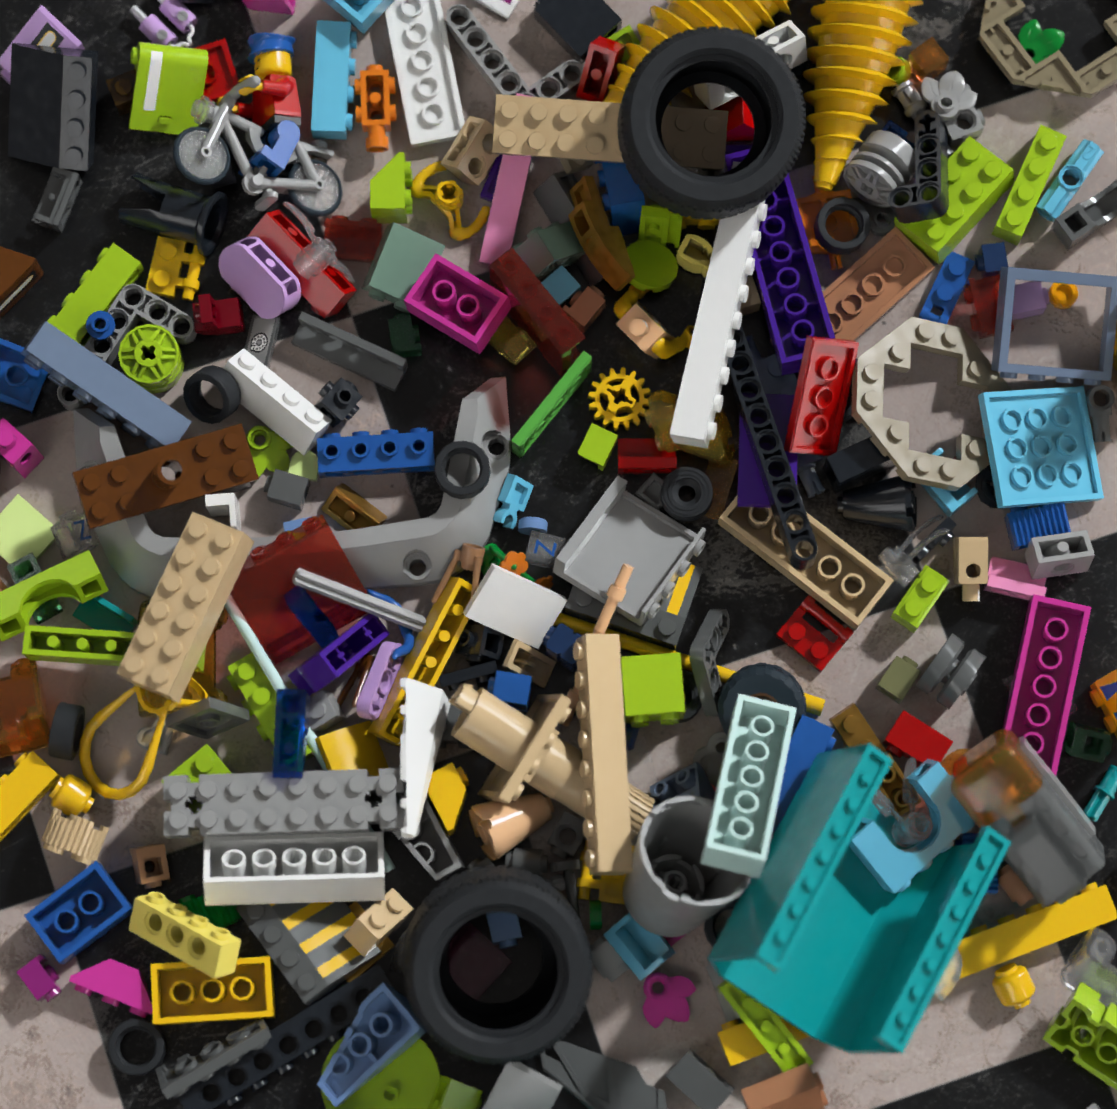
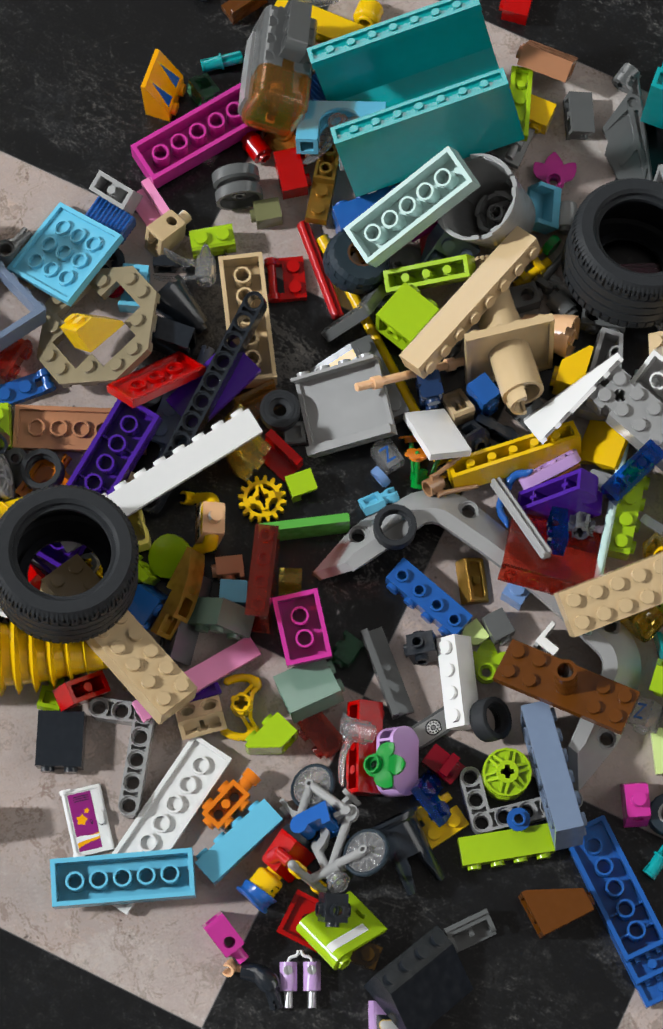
camera: 135 degrees left, 5 degrees down
(185, 87) = (333, 908): none -> black brick
(200, 267) = (426, 792): none -> clear blue plate
(263, 253) = (387, 765): none -> green plate
(295, 646) = (581, 525): none -> dark grey gear
(674, 754) = (431, 273): none -> lime brick
(807, 680) = (317, 264): none -> red axle
(932, 387) = (89, 331): none -> yellow slope
(972, 733) = (256, 147): none -> red brick

